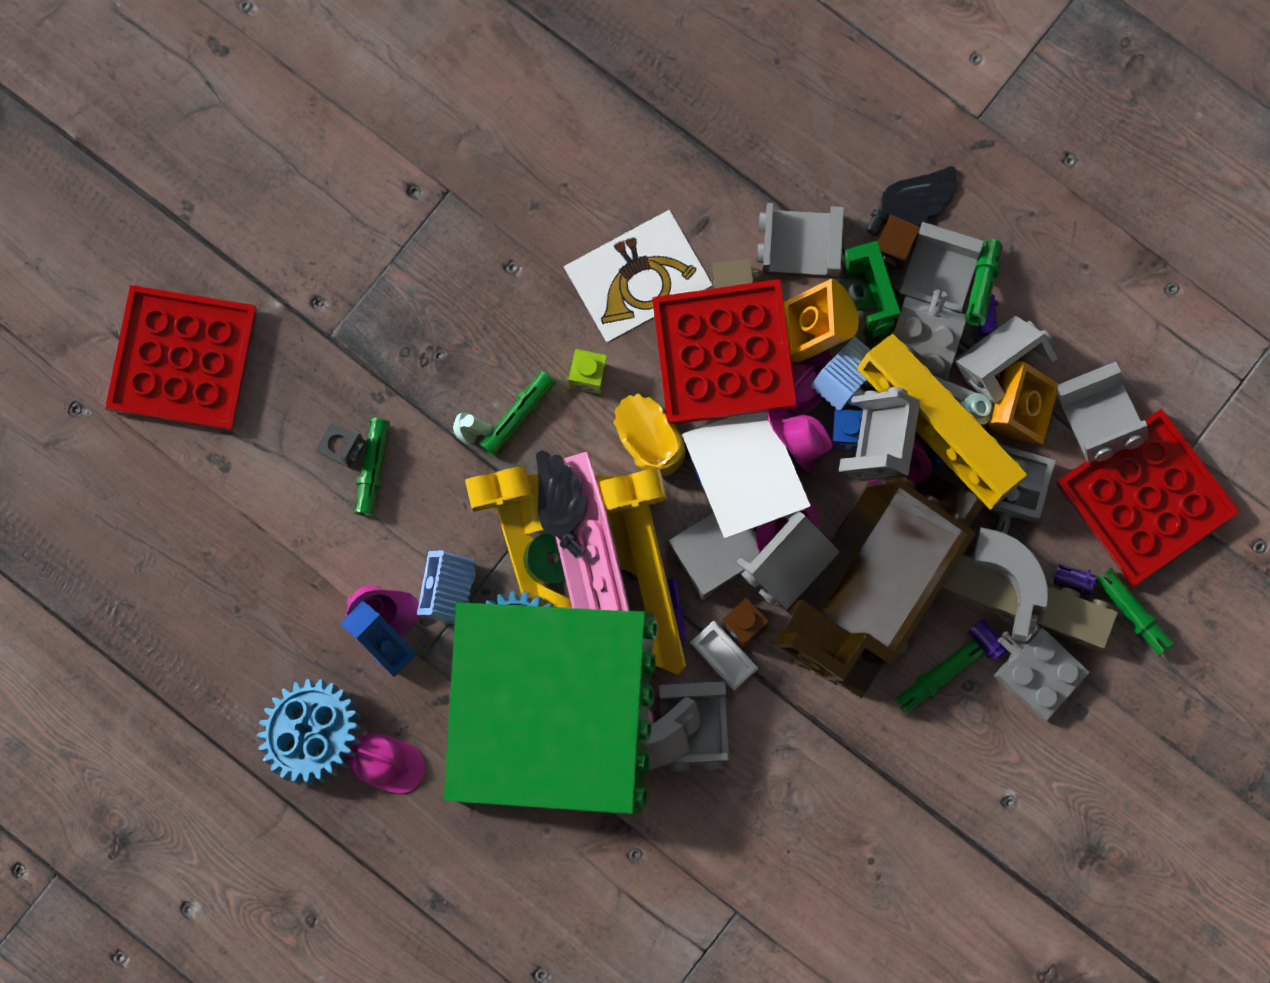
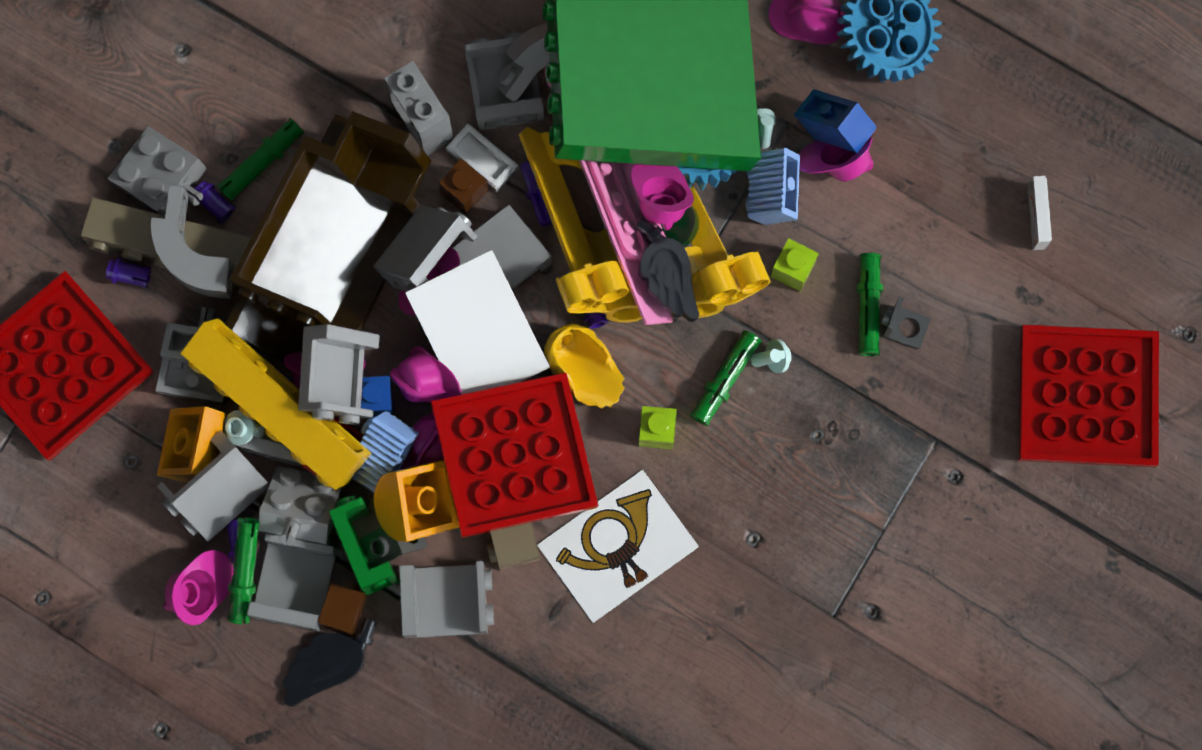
camera: 170 degrees right, 0 degrees up
(195, 534) = (1039, 212): none -> white tile
(437, 509) = (794, 265): none -> lime brick
(445, 649) = (766, 121): none -> light aqua plate
(555, 577) = (661, 193): none -> dark pink piece
(781, 703) = (419, 106): none -> light grey window
(1029, 272) = (199, 587): none -> dark pink piece
(1101, 413) = (107, 442): light grey panel -> none
(1135, 612) = (64, 246): green pin -> none

